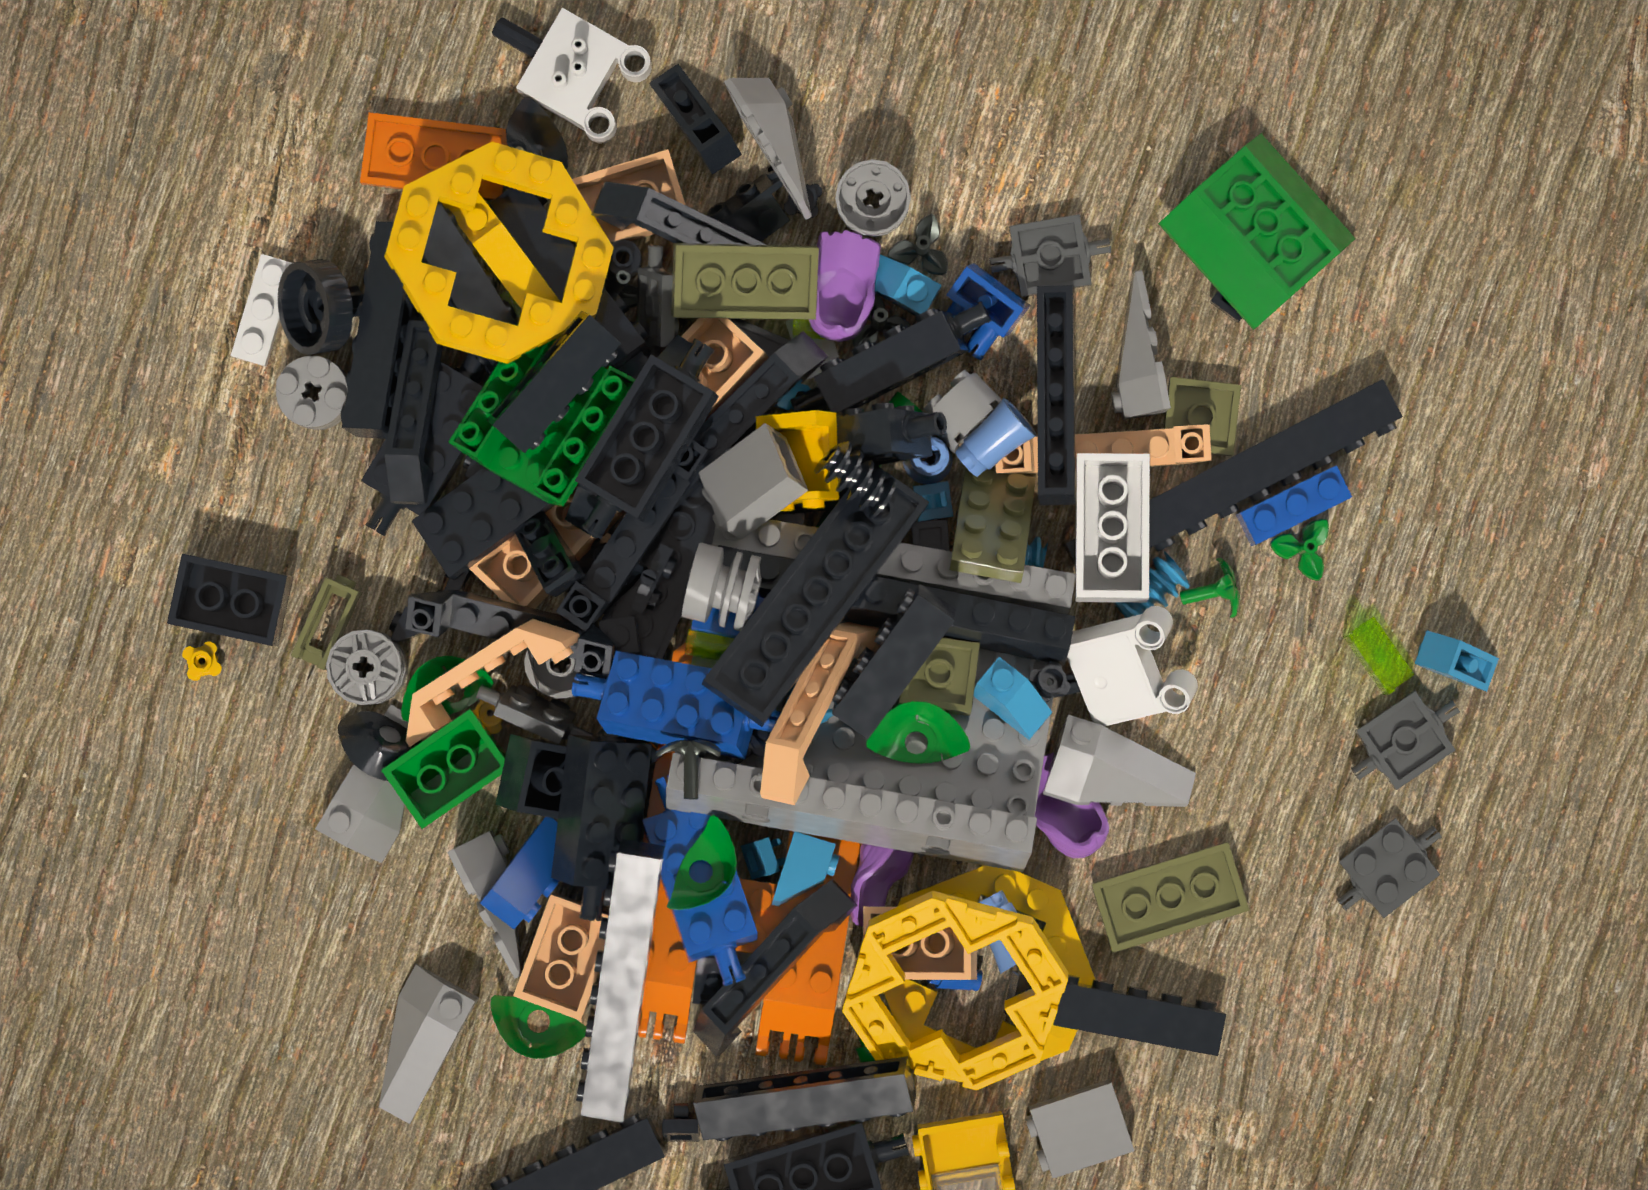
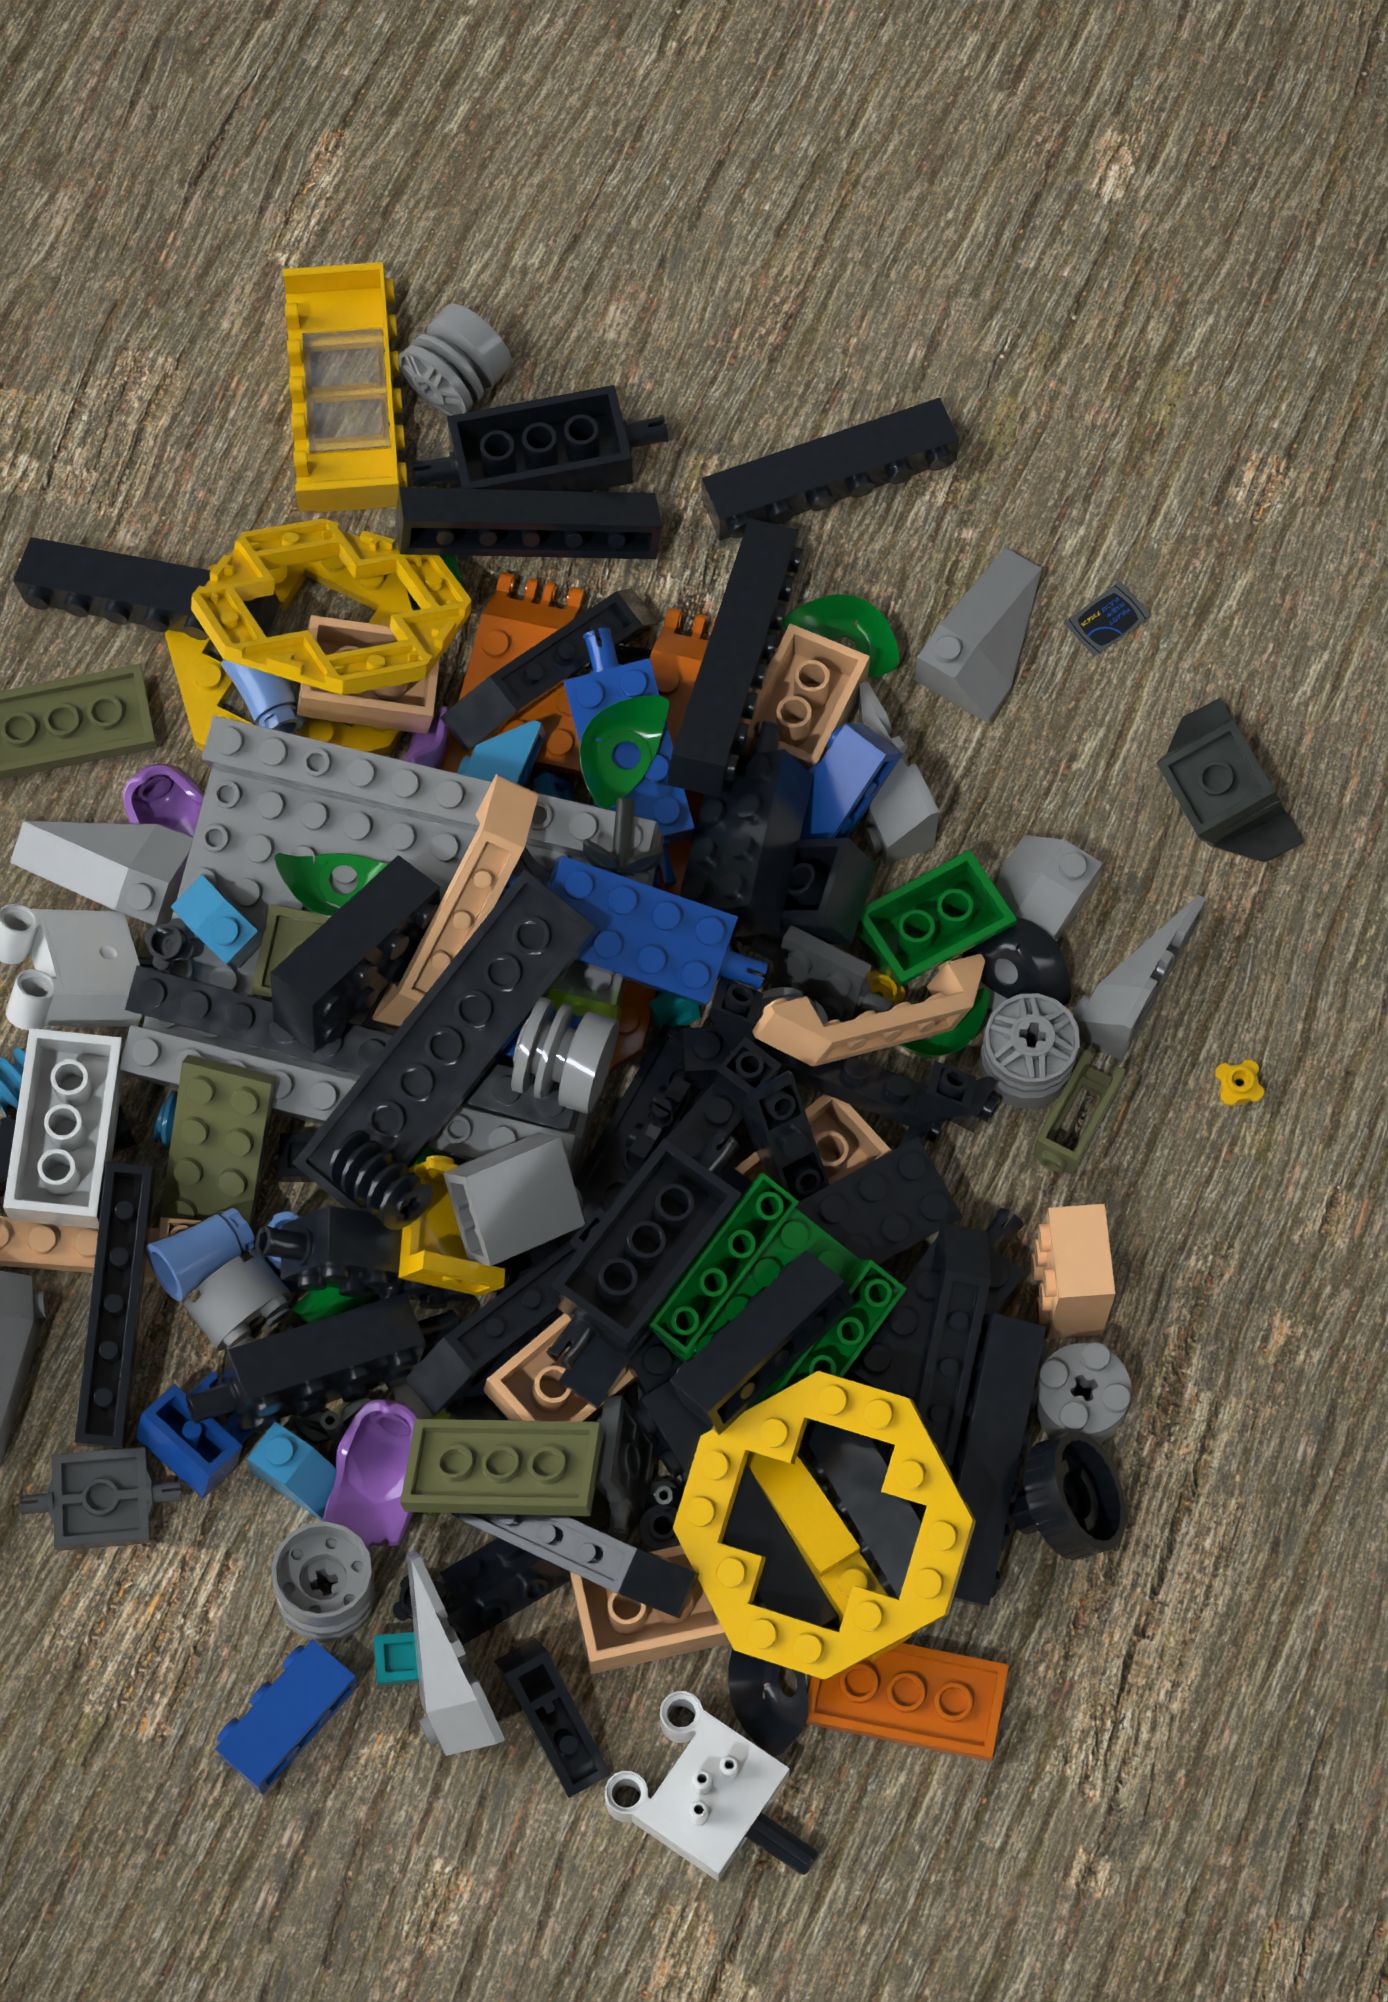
camera: 175 degrees left, 20 degrees down
(223, 917) = (1226, 787): none -> pearl dark grey piece
(230, 600) = (1200, 1145): black brick -> none
(261, 313) = (1147, 1513): white plate -> none
(295, 717) = (1128, 993): none -> light grey wedge
(322, 478) = (1074, 1271): none -> light nougat brick
(322, 1066) = (1107, 619): none -> sticker
(681, 1127) = (680, 515): black tile -> none
(815, 152) = (395, 1659): none -> teal plate
(891, 102) = (286, 1715): none -> blue brick
(926, 233) = (257, 1510): pearl dark grey plant -> none
(939, 501) = (293, 1197): dark azure tile -> none
(1079, 1129) = (208, 479): light grey brick -> none

